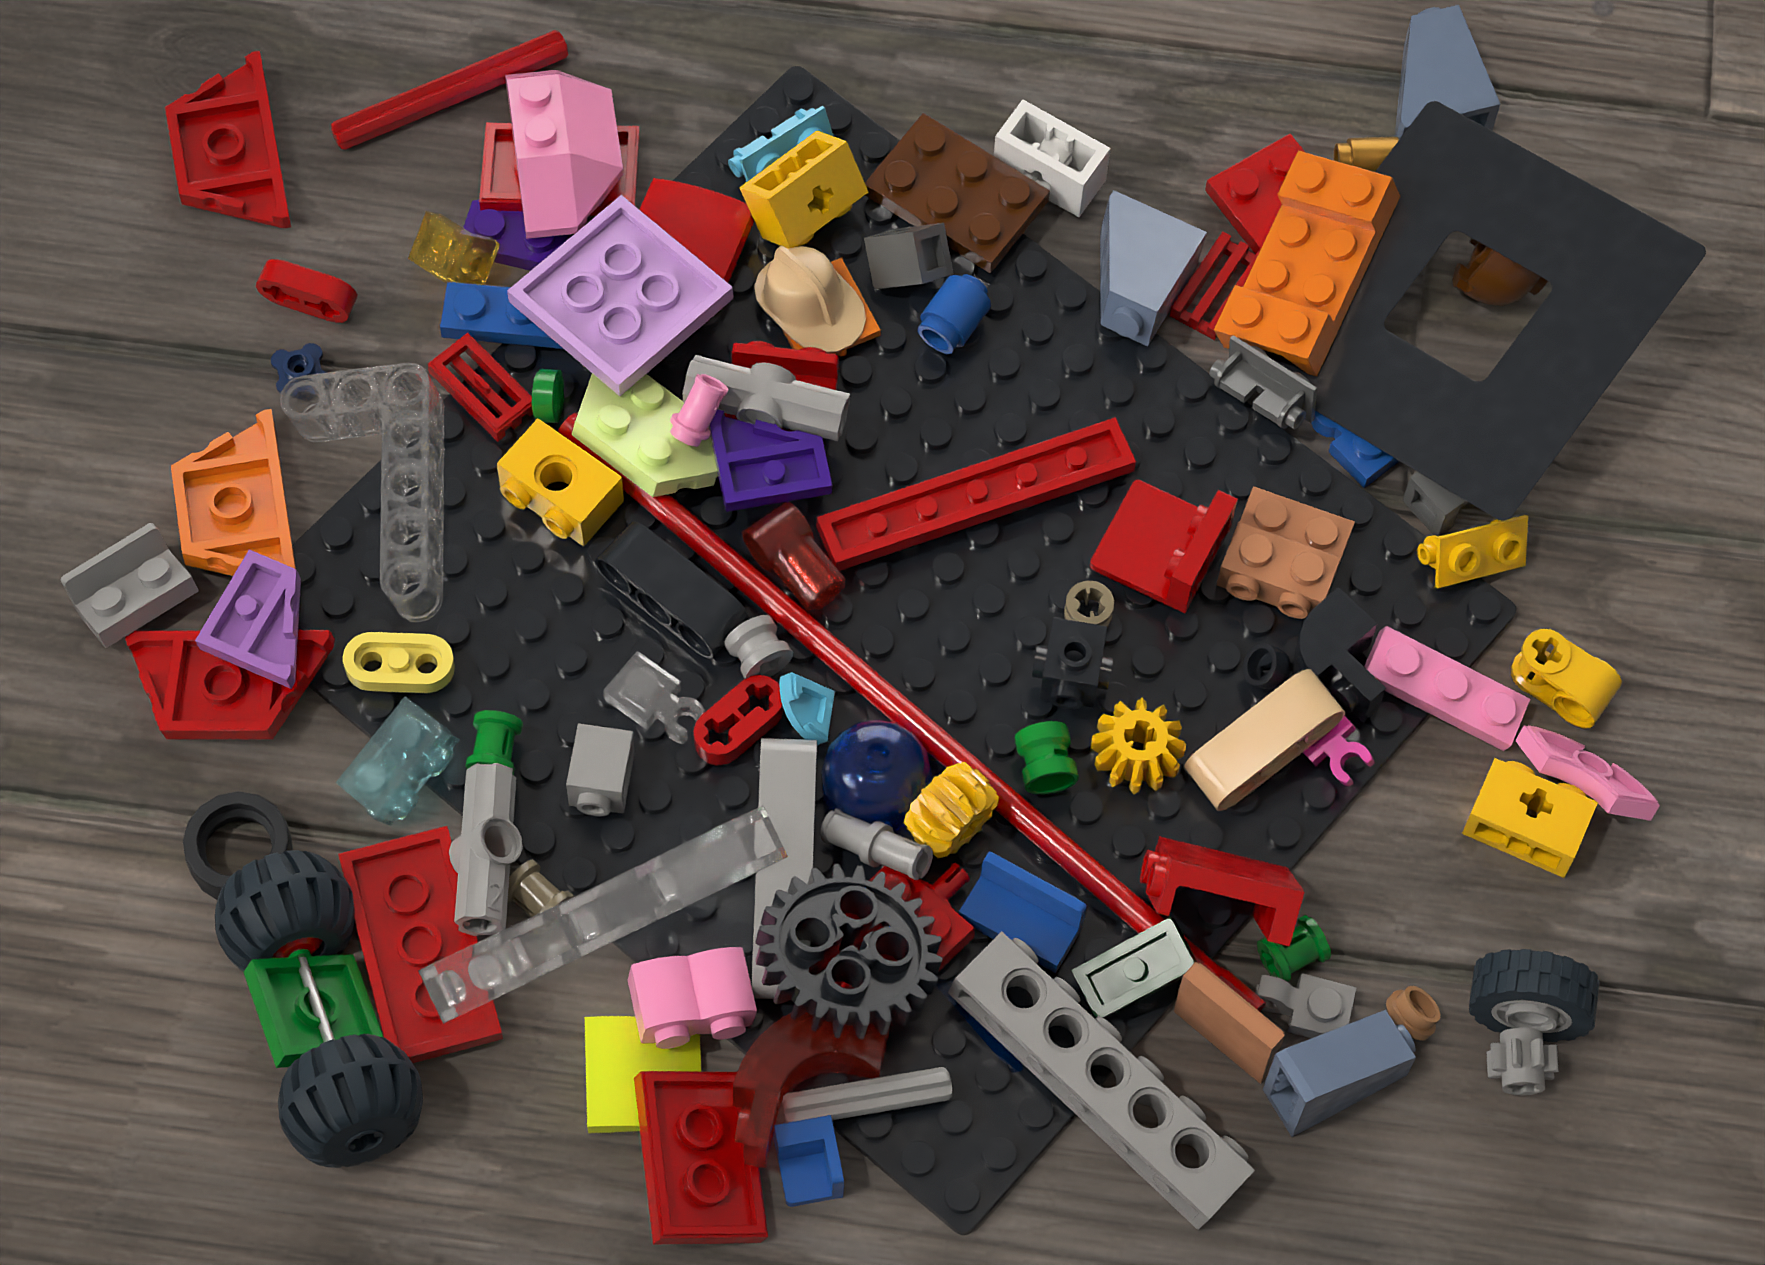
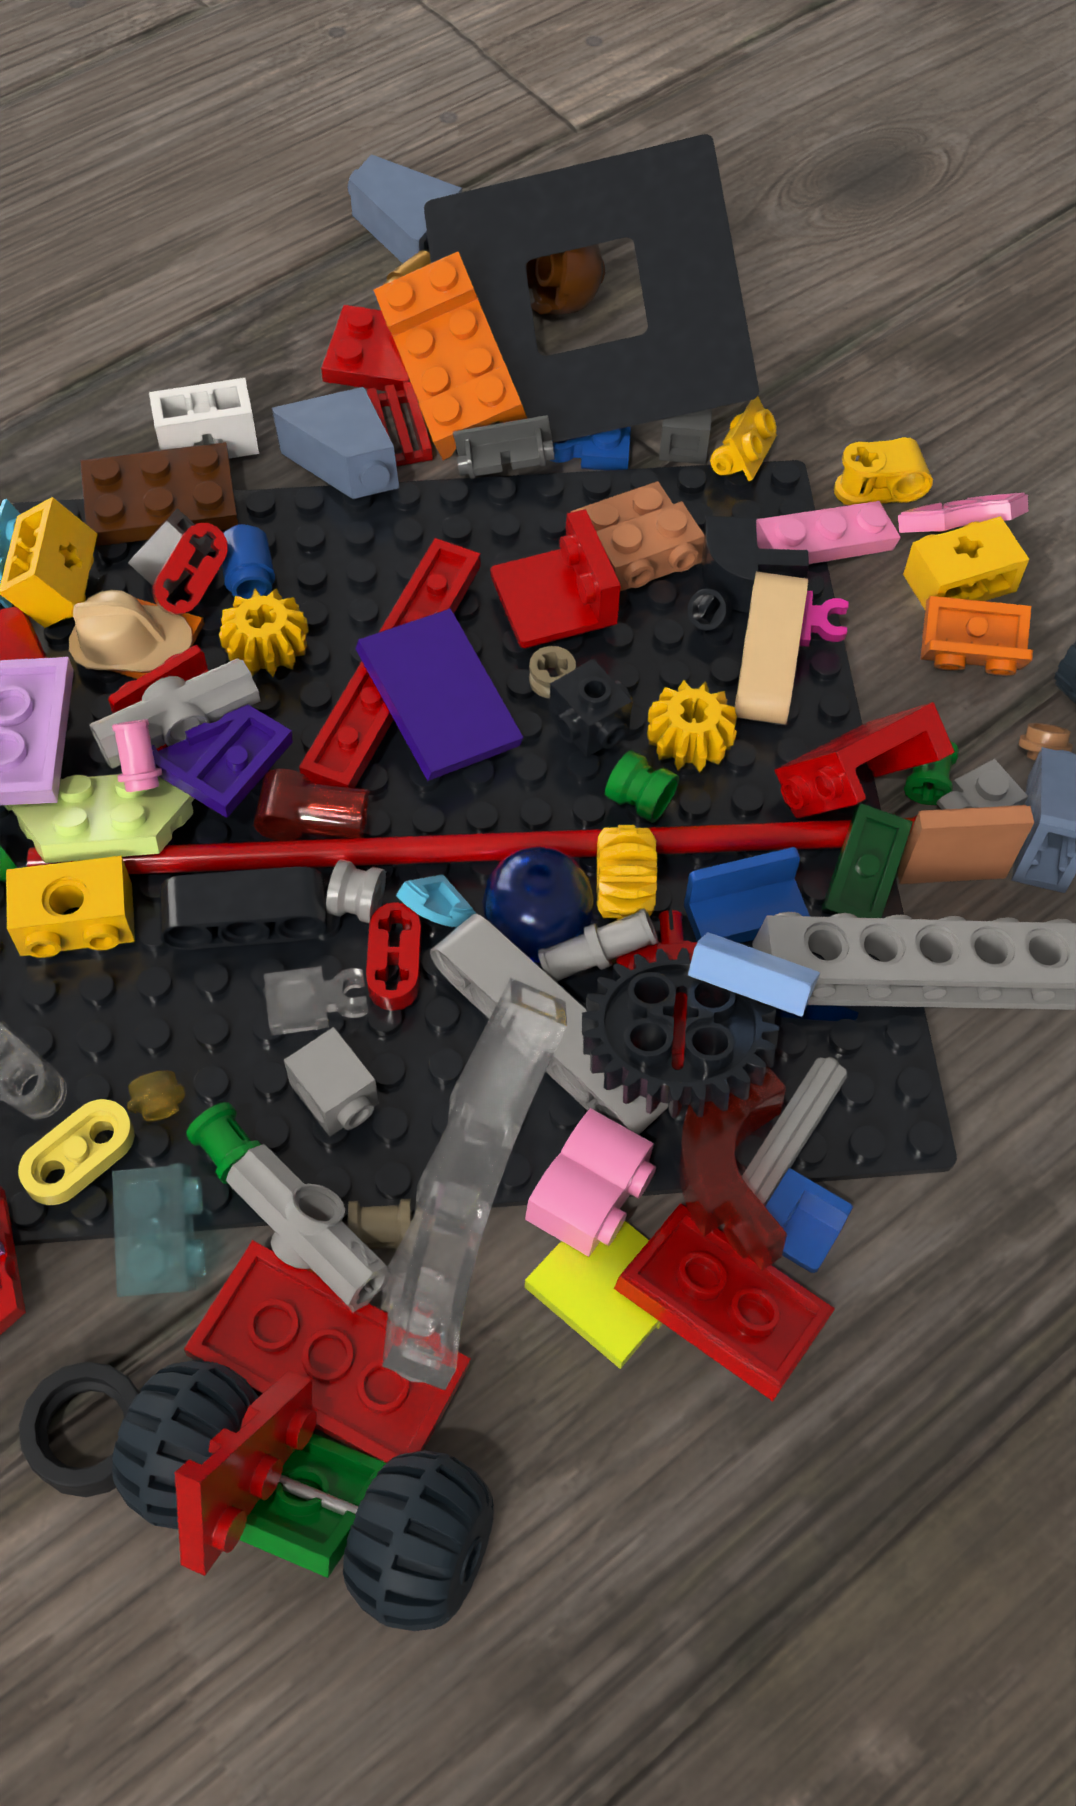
camera: 45 degrees left, 5 degrees down
(286, 954) = (242, 1469): none -> red wing
(483, 671) = (155, 1095): none -> clear yellow plate
(901, 297) = (179, 562): none -> red beam
(905, 384) = (264, 631): none -> yellow gear
(936, 957) = (753, 973): none -> light blue slope
(976, 550) = (439, 693): none -> dark purple tile
(1465, 880) = (976, 634): none -> orange bracket

